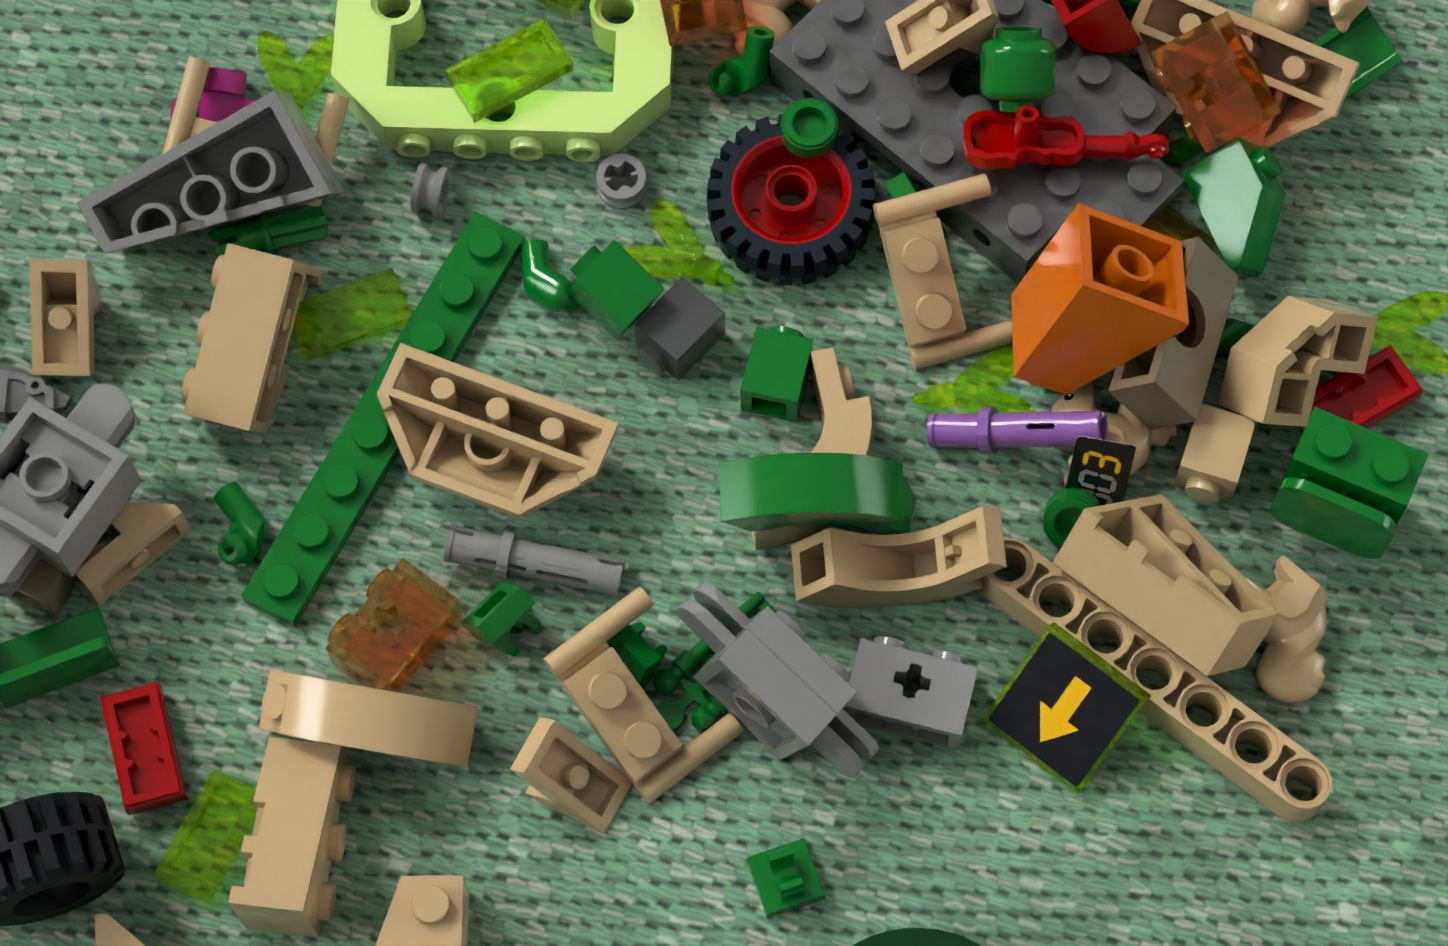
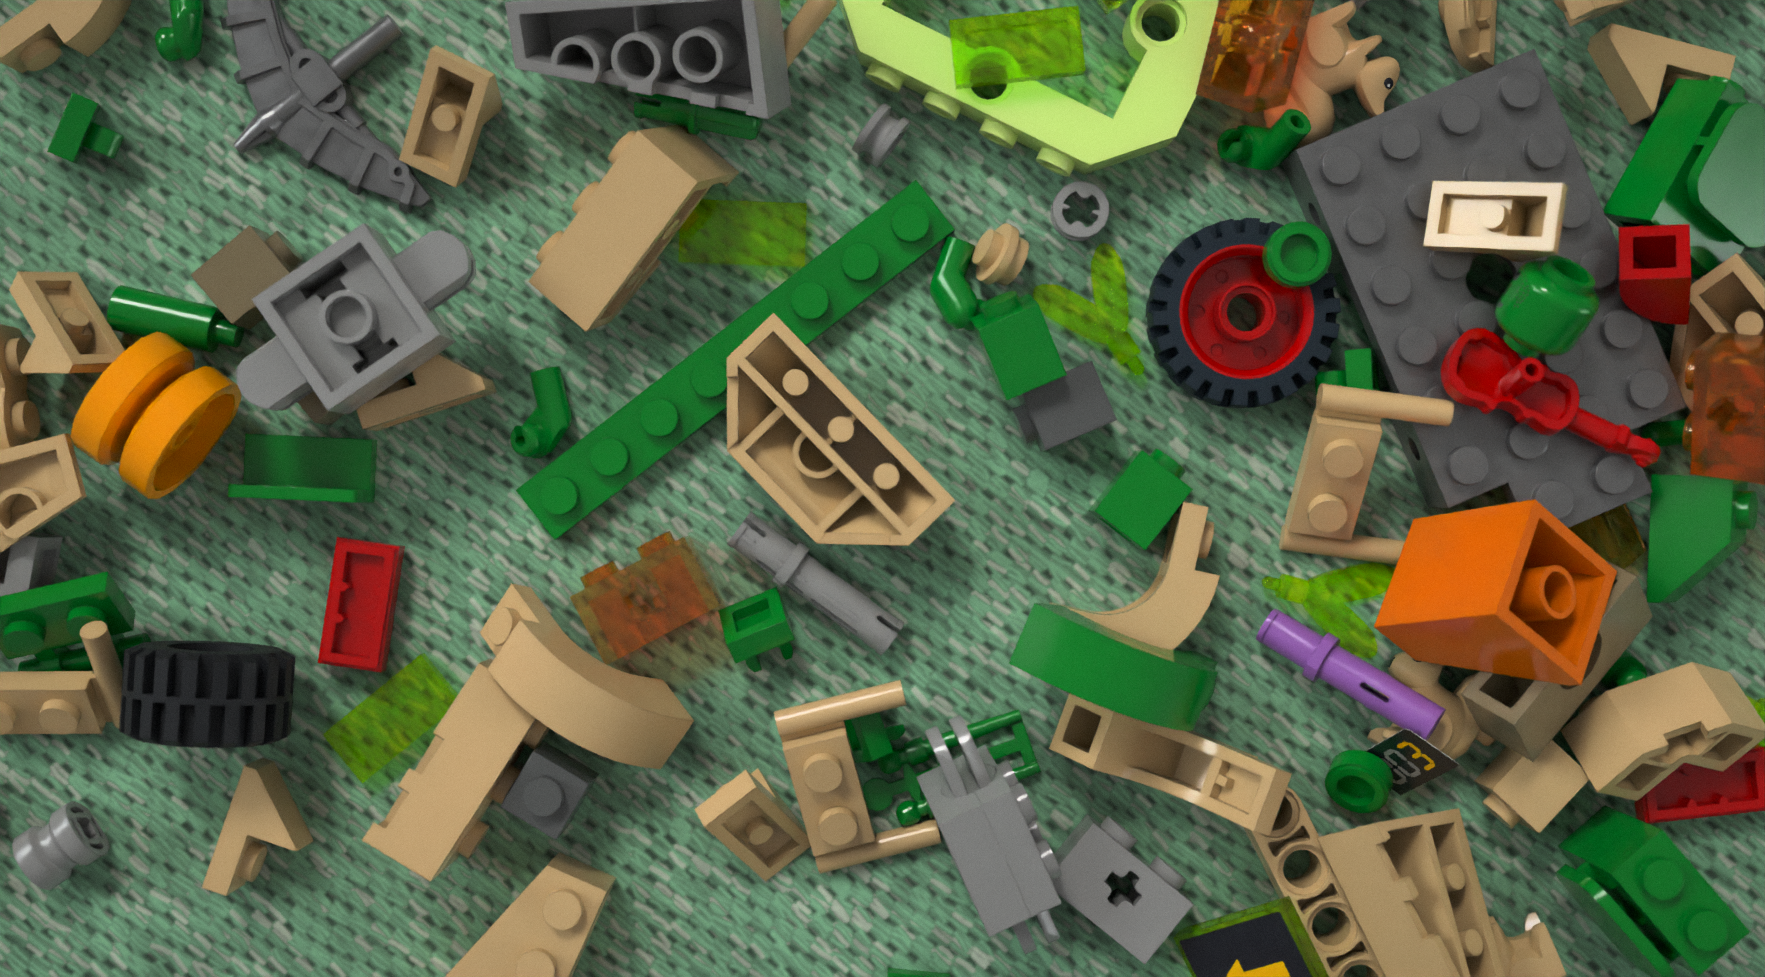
camera: 25 degrees right, 20 degrees up
(377, 825) = (549, 790): none -> dark grey brick
(570, 237) = (1000, 255): none -> tan plate

